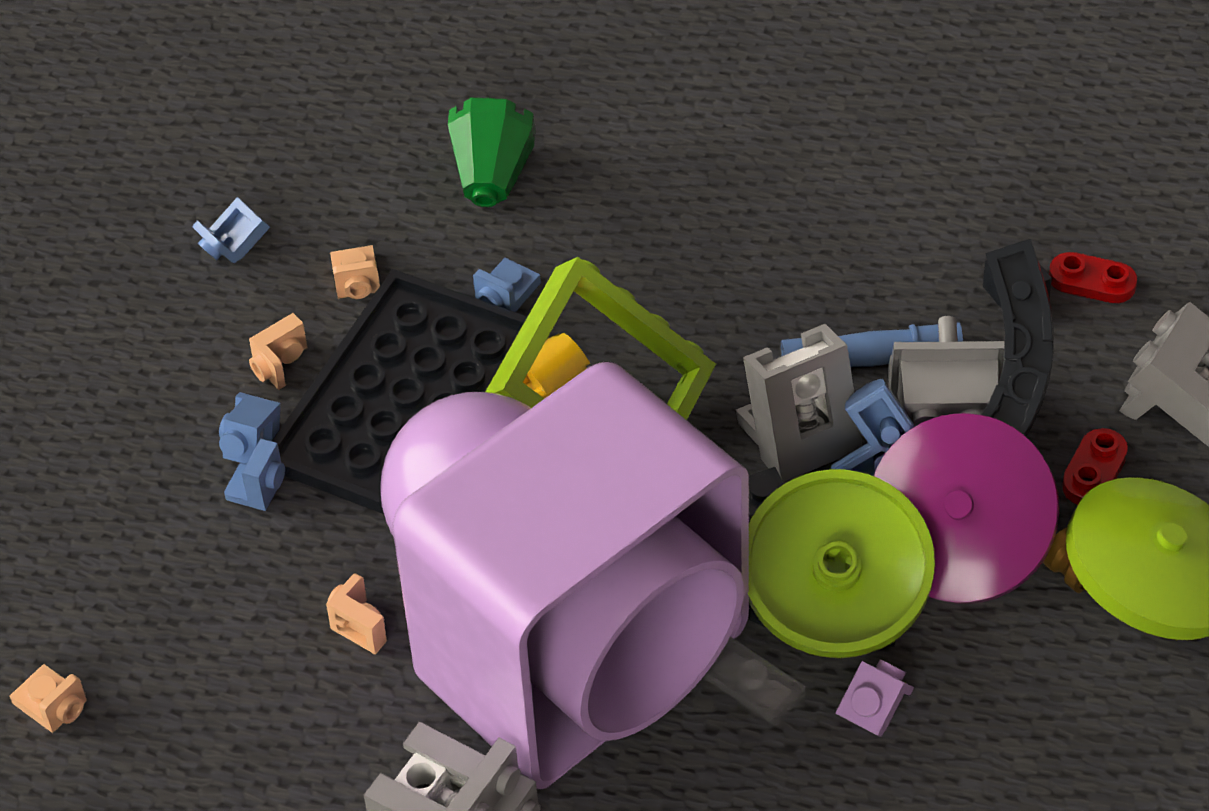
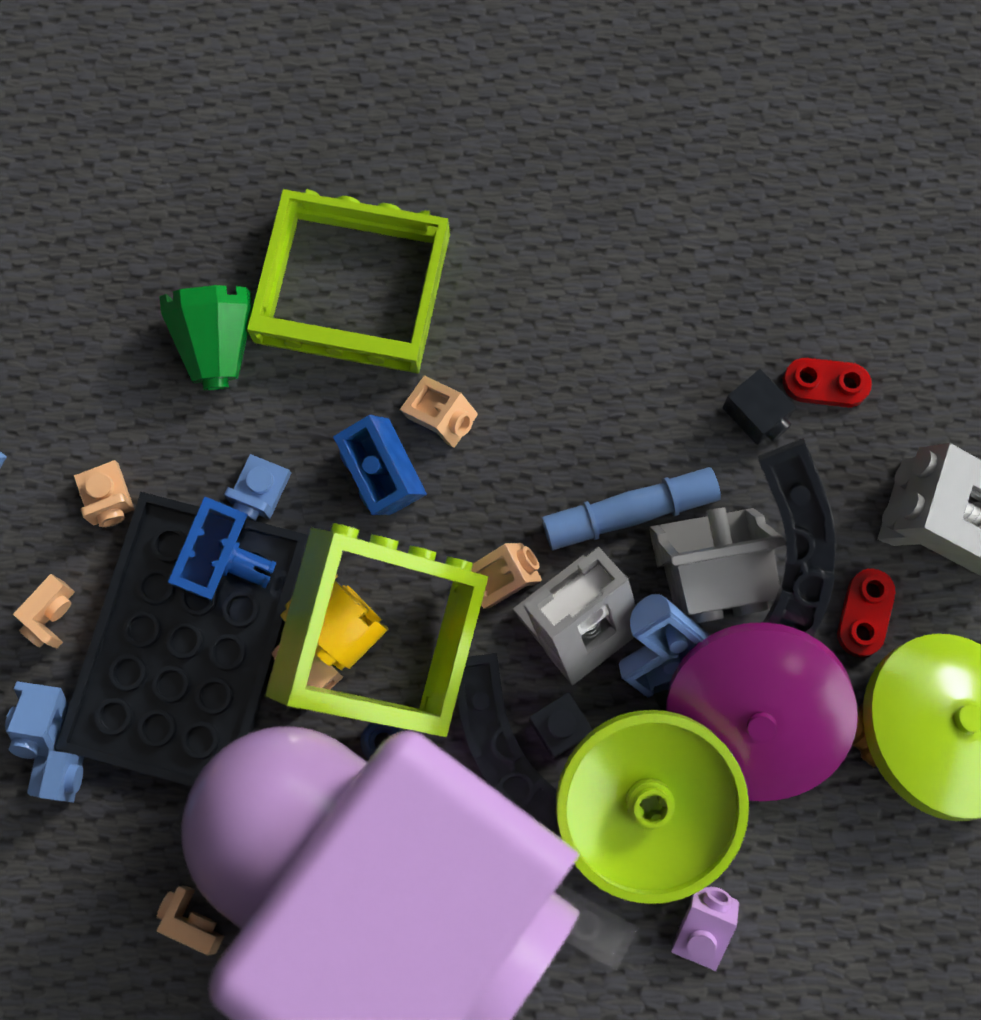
camera: 10 degrees left, 25 degrees up
(453, 309) = (213, 552): none -> blue brick
(620, 182) = (336, 343): none -> lime window
(628, 264) = (379, 465): none -> blue brick
(701, 244) = (440, 410): none -> light nougat bracket
(726, 383) = (508, 570): none -> light nougat bracket

